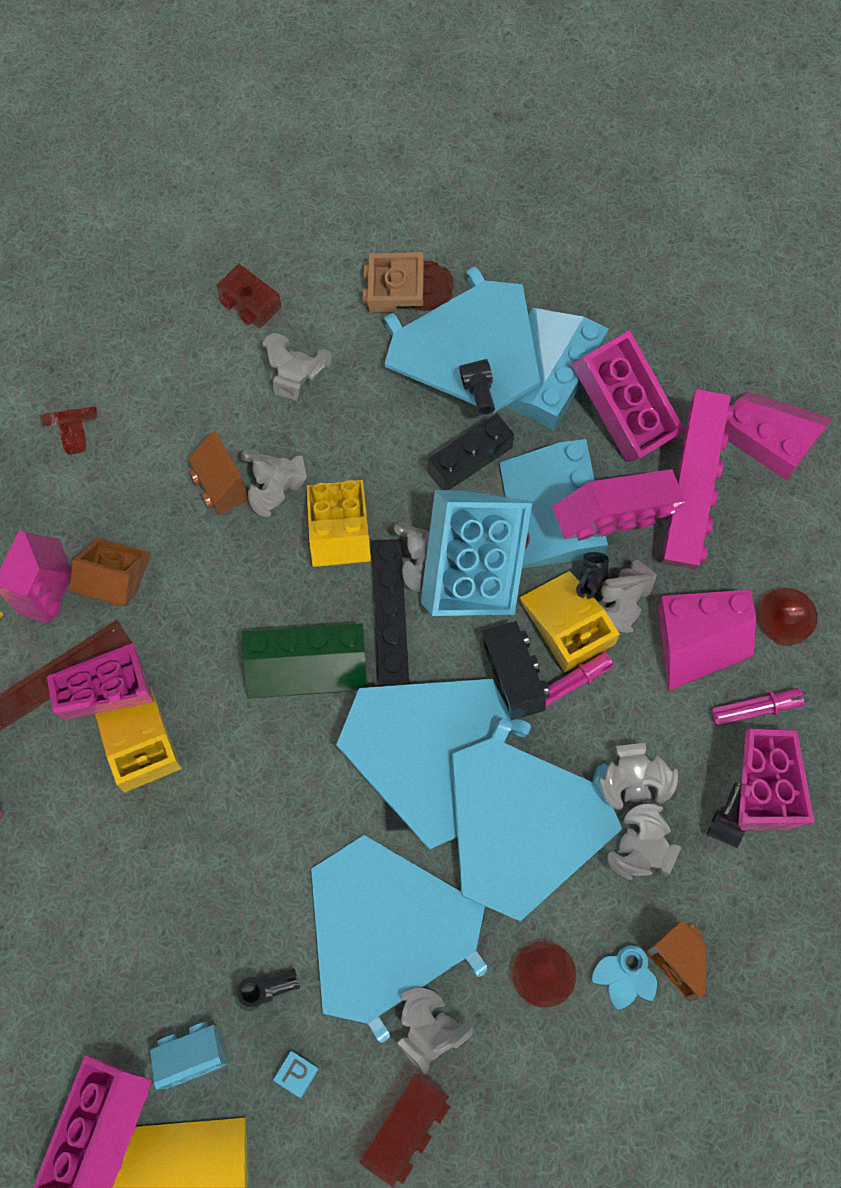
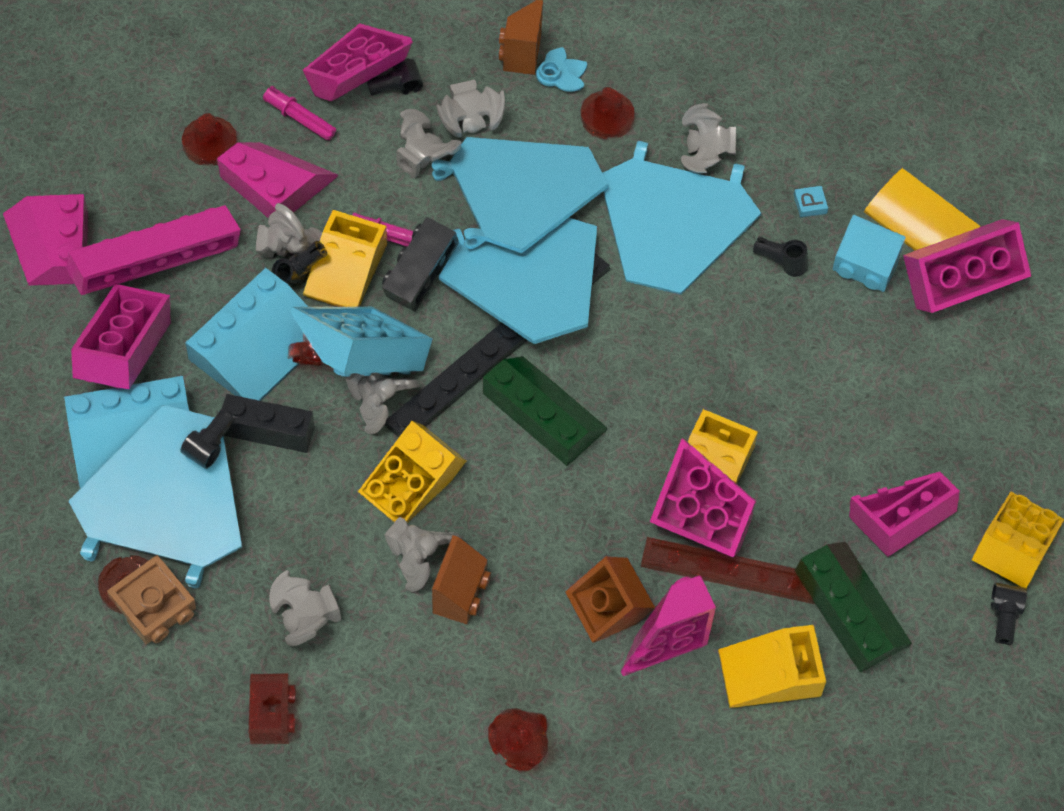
camera: 135 degrees left, 10 degrees down
(405, 1131) = (777, 117): clear red brick -> none
(618, 504) = (233, 264): dark pink brick -> none

